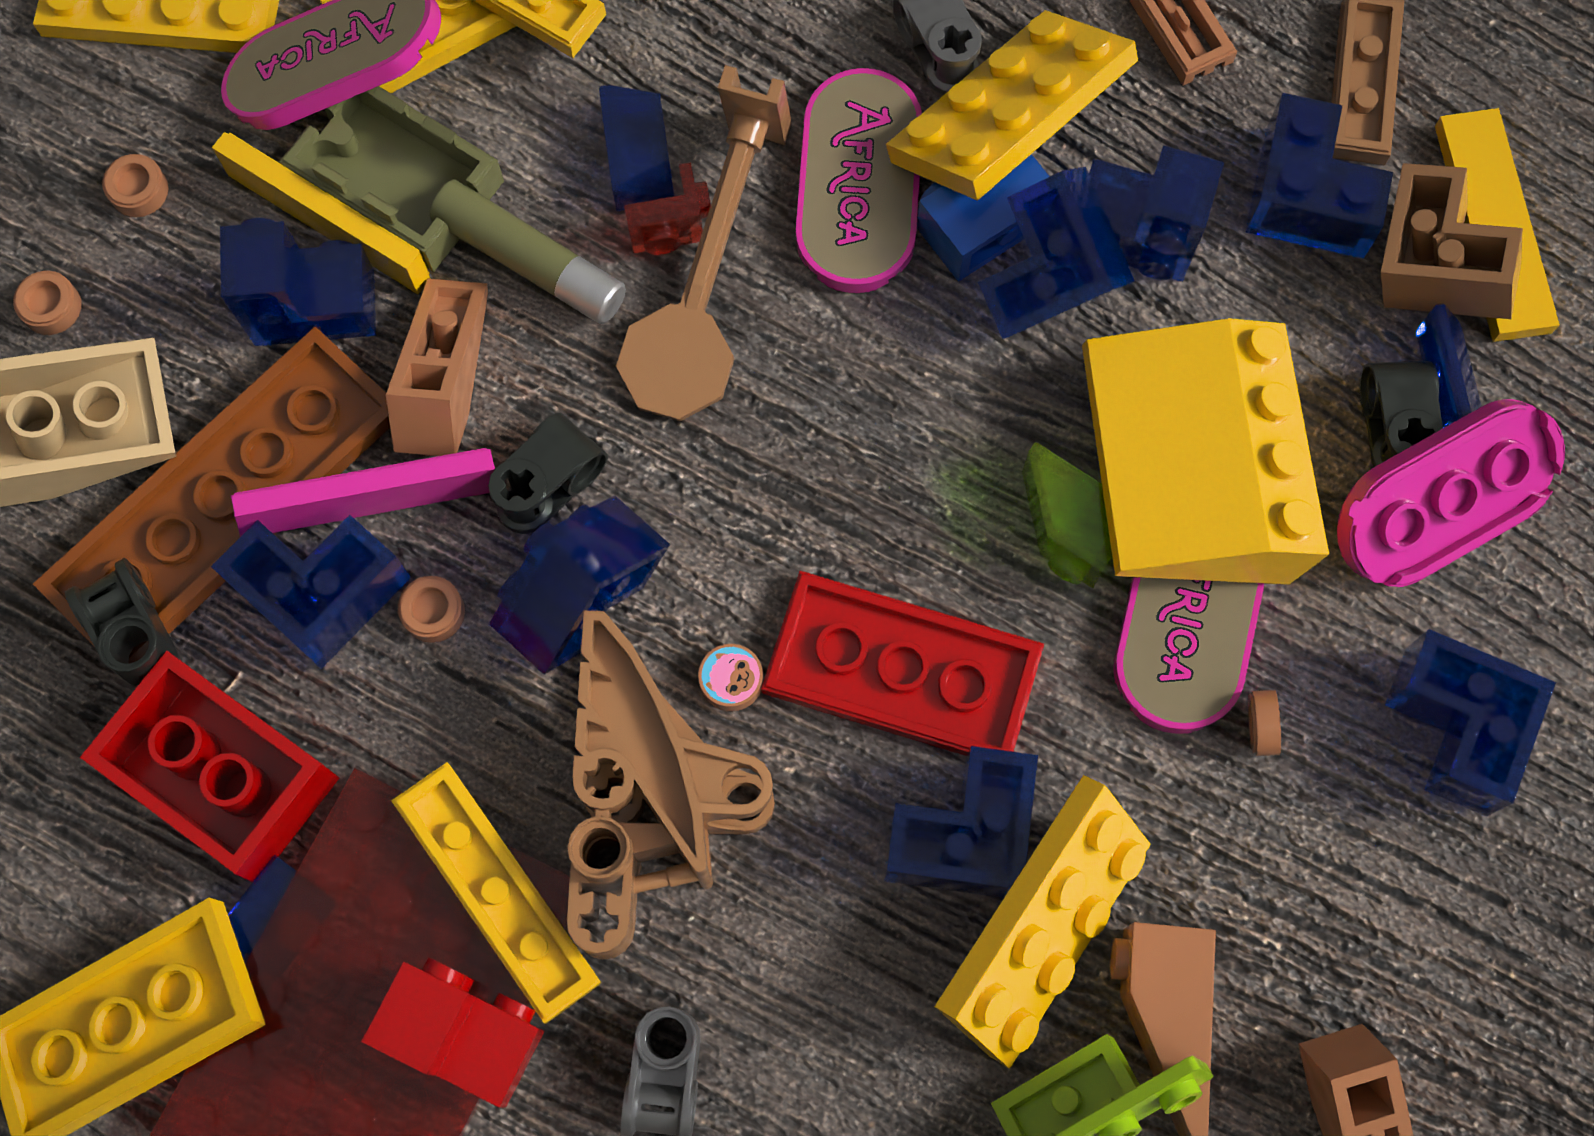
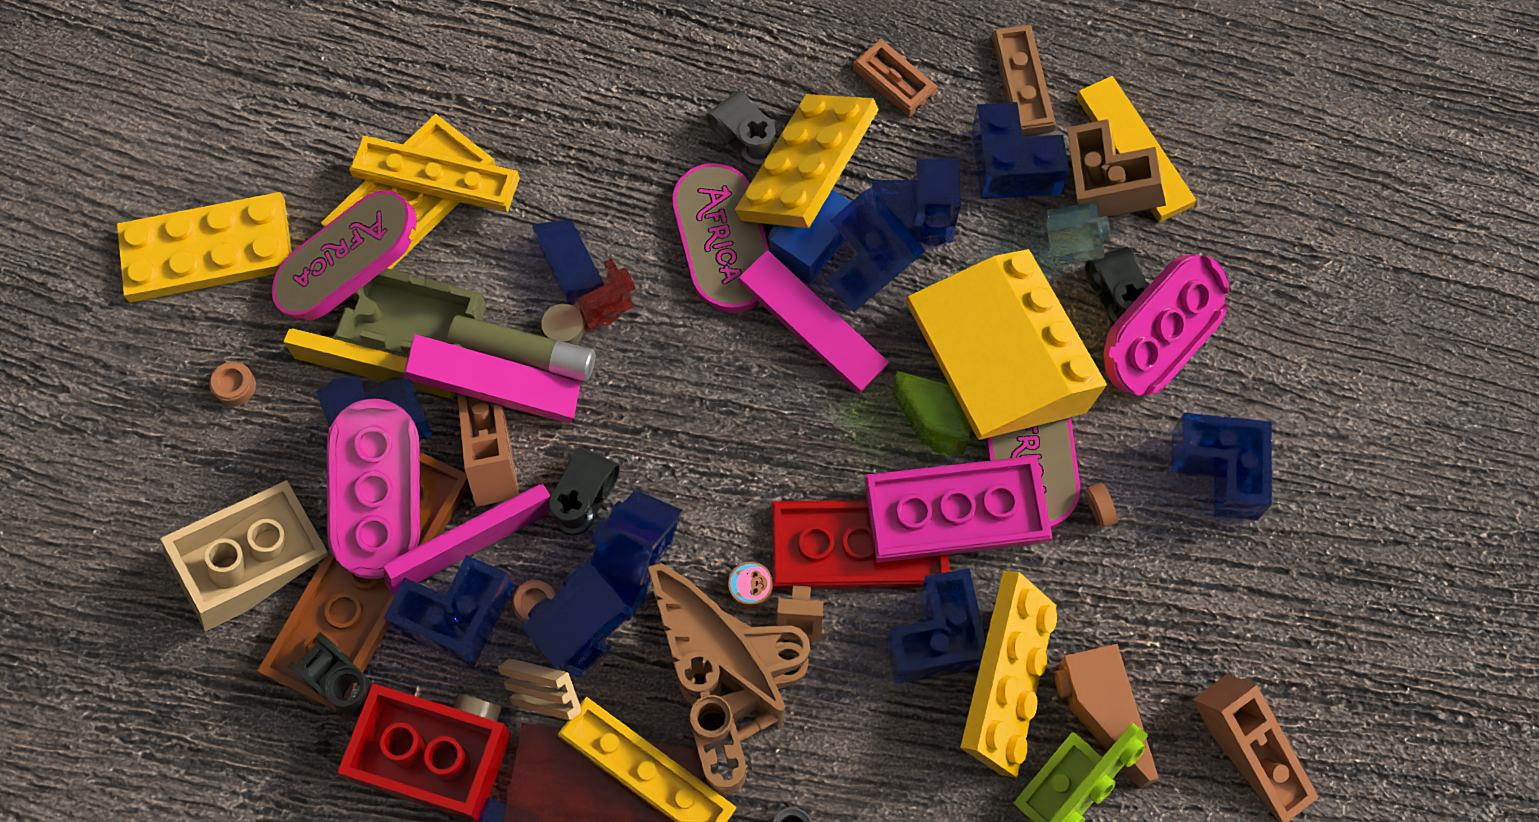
camera: 20 degrees left, 5 degrees down
(47, 302) = (197, 480): nougat tile -> none
(256, 379) = (372, 486): none -> dark pink tile
(302, 729) = (477, 707): none -> dark tan tile
(386, 729) = (540, 696): none -> tan tile
(466, 656) = (578, 620): none -> clear blue brick
(470, 282) = (491, 379): none -> dark pink tile
(598, 236) = (563, 323): none -> dark tan tile
(677, 356) = (642, 386): medium nougat piece -> none
(783, 742) = (801, 613): none -> medium nougat tile
(943, 336) = (813, 322): none -> dark pink tile
(1056, 663) = (957, 509): none -> dark pink tile
(1364, 321) = (1077, 233): none -> clear light blue brick
(1444, 344) = (1129, 233): clear blue slope -> none

